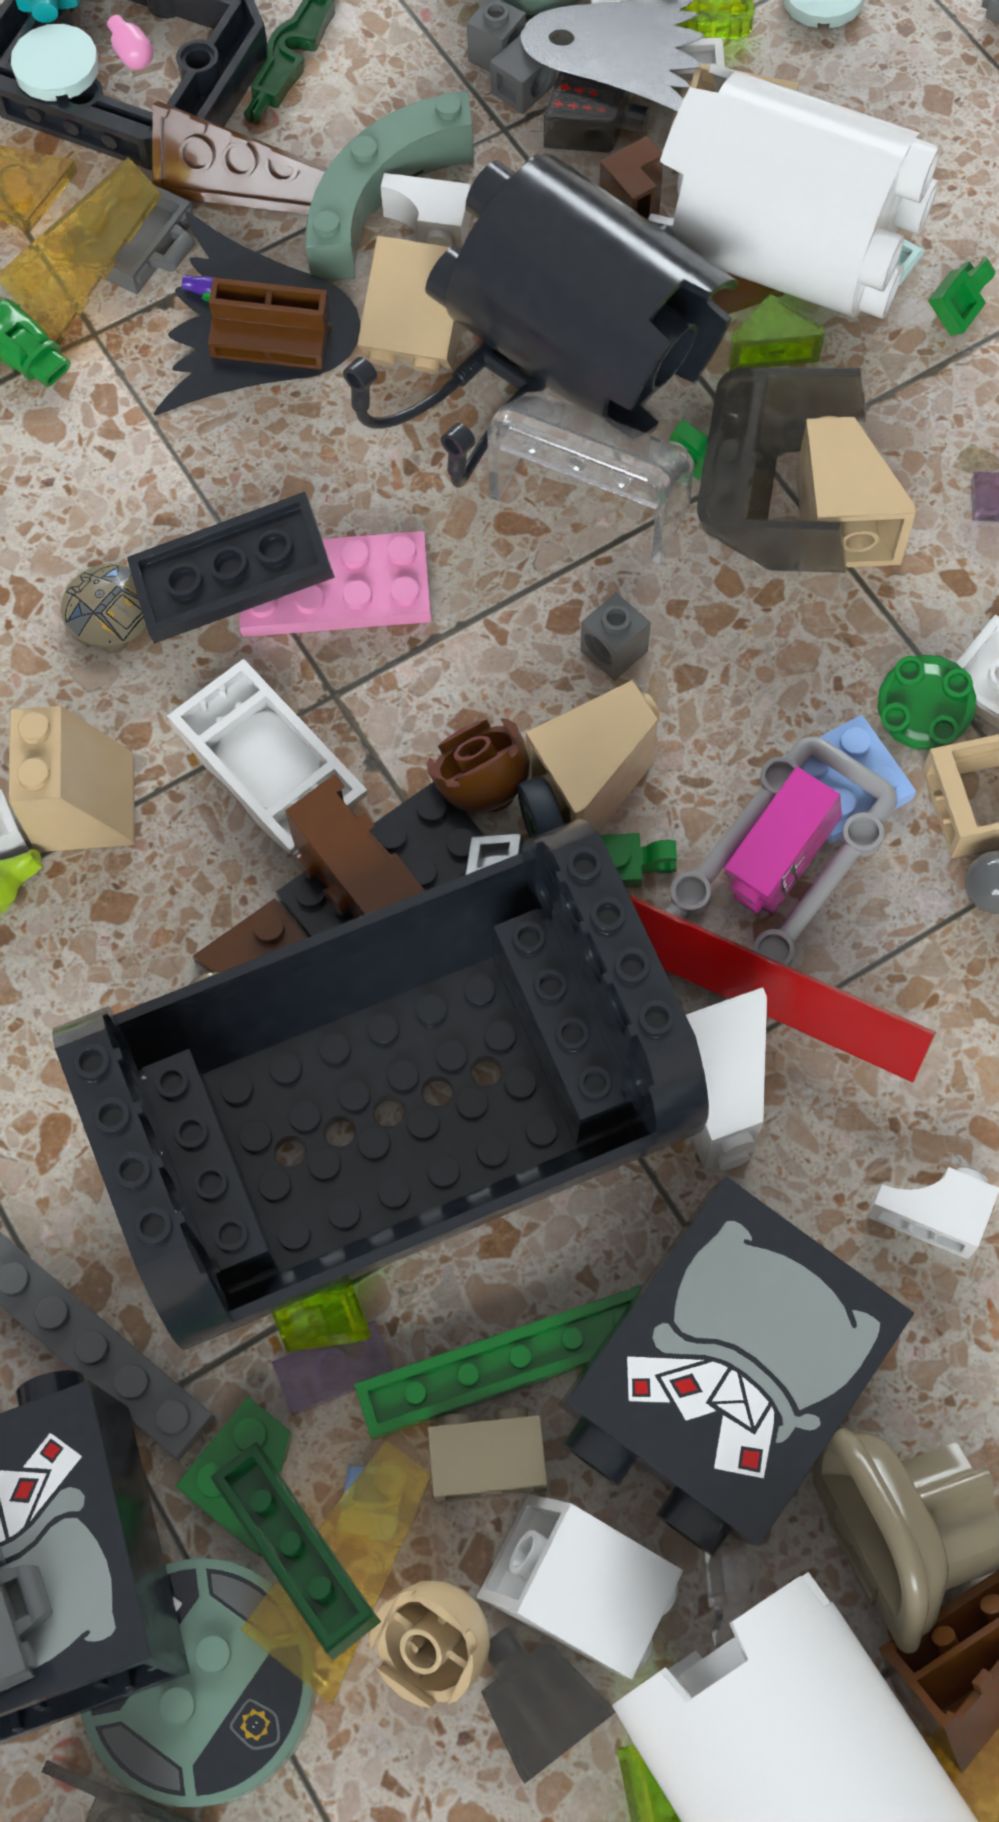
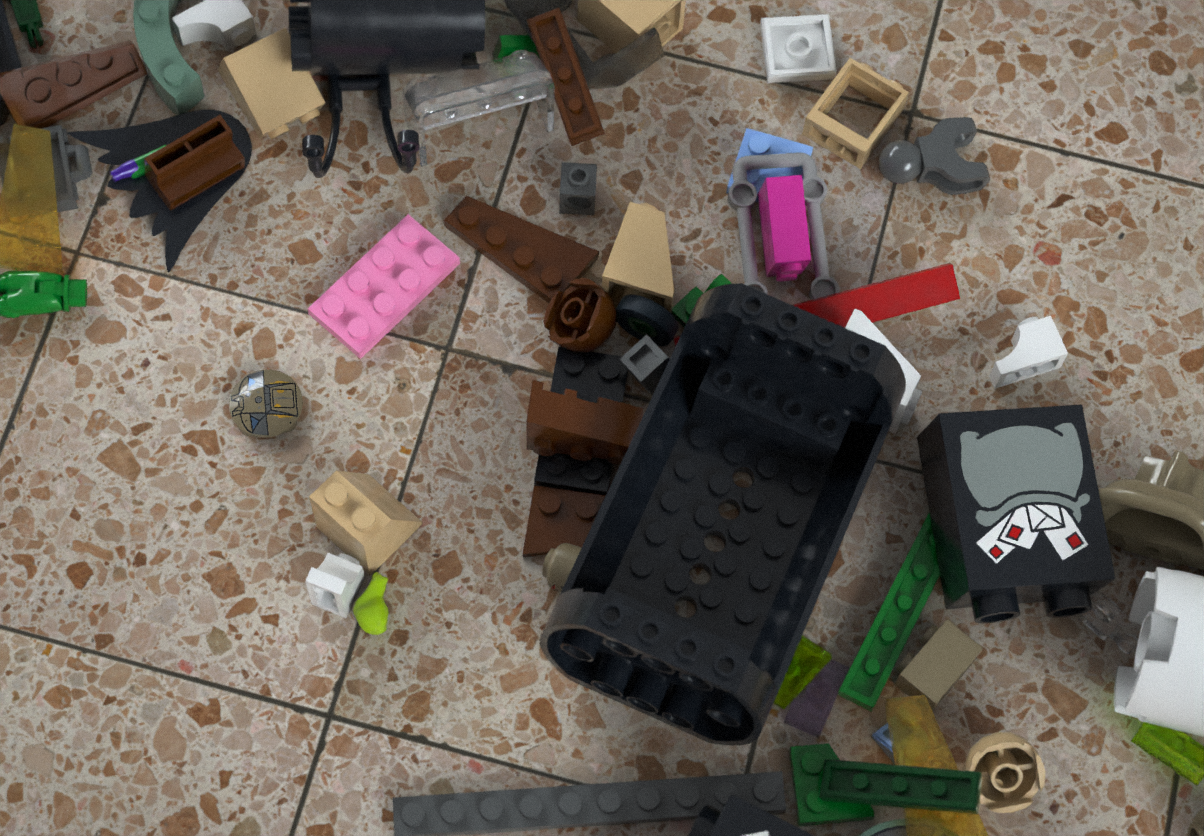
camera: 50 degrees left, 0 degrees up
(229, 567) = (326, 321): black plate -> none
(259, 748) = (452, 412): white slope -> none
(502, 650) = (522, 249): none -> reddish brown wing
(539, 1703) = (1079, 755): clear smoke torso -> none
(581, 1584) = (1039, 681): white slope -> none
(699, 506) = (571, 88): none -> reddish brown tile
(926, 701) = (773, 94): green dish -> none

